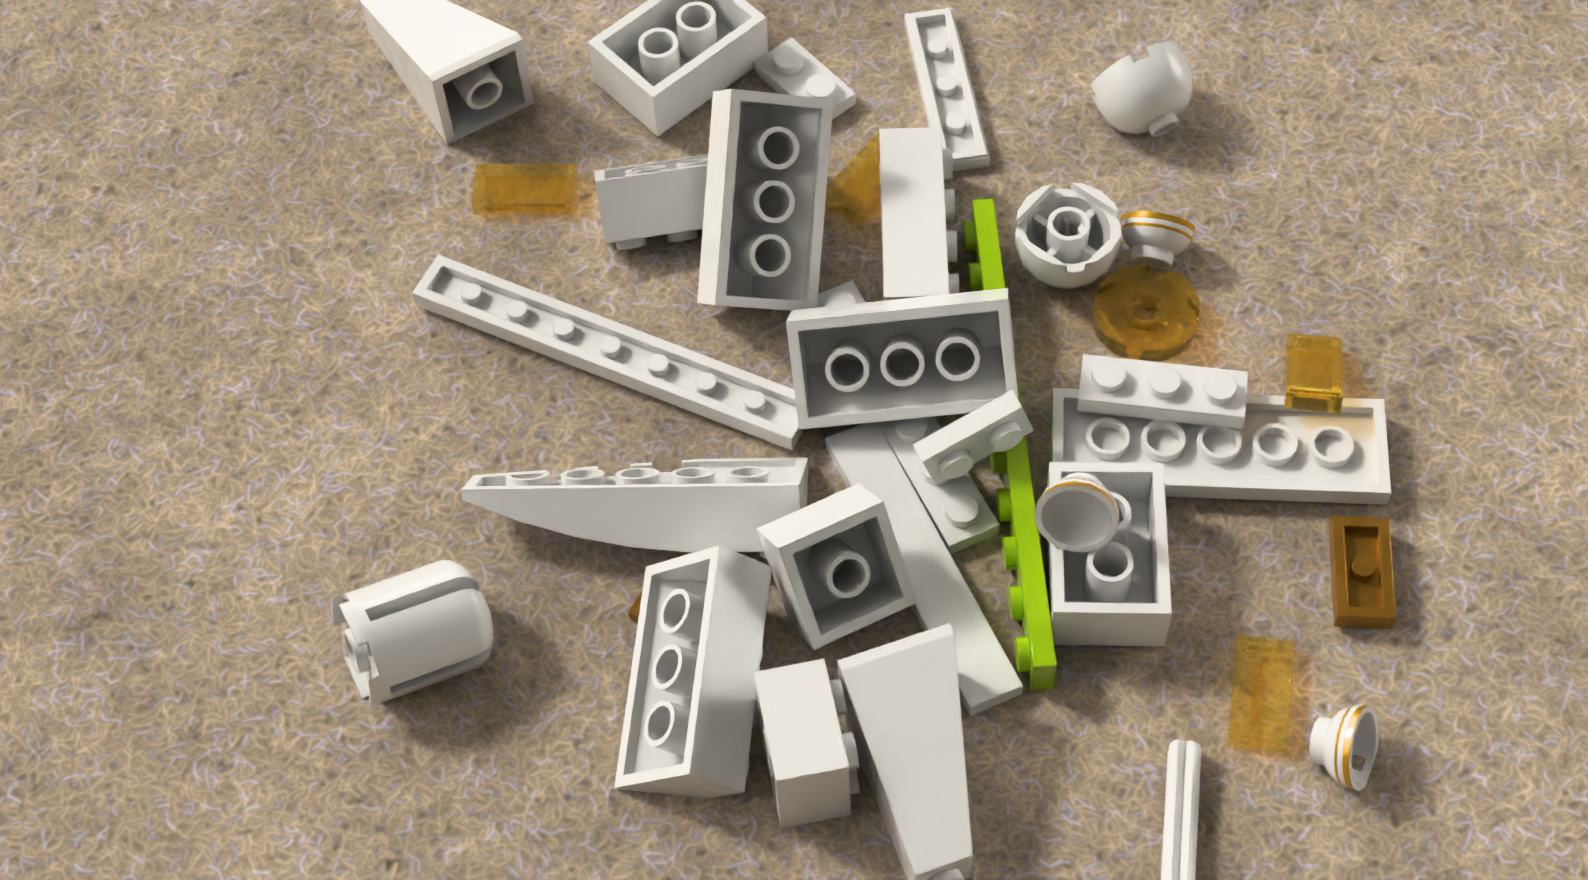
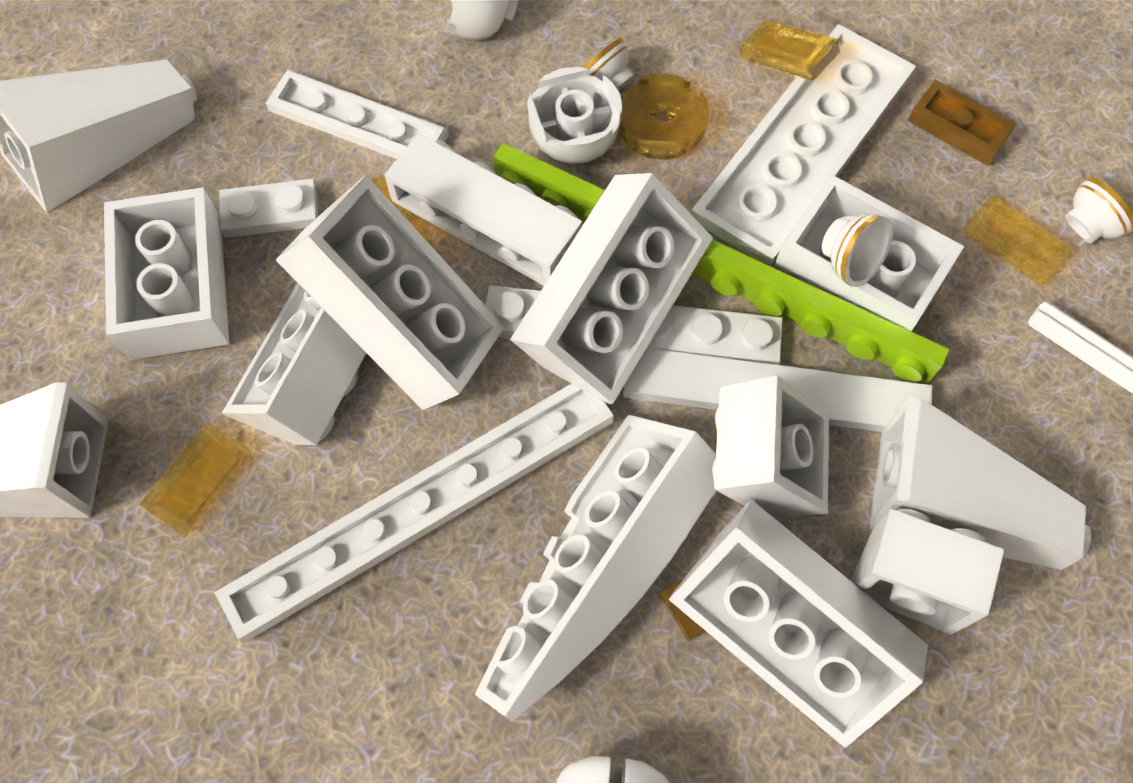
camera: 60 degrees left, 10 degrees up
(973, 437) = (731, 260): white plate -> none
(1162, 391) = (748, 143): white plate -> none

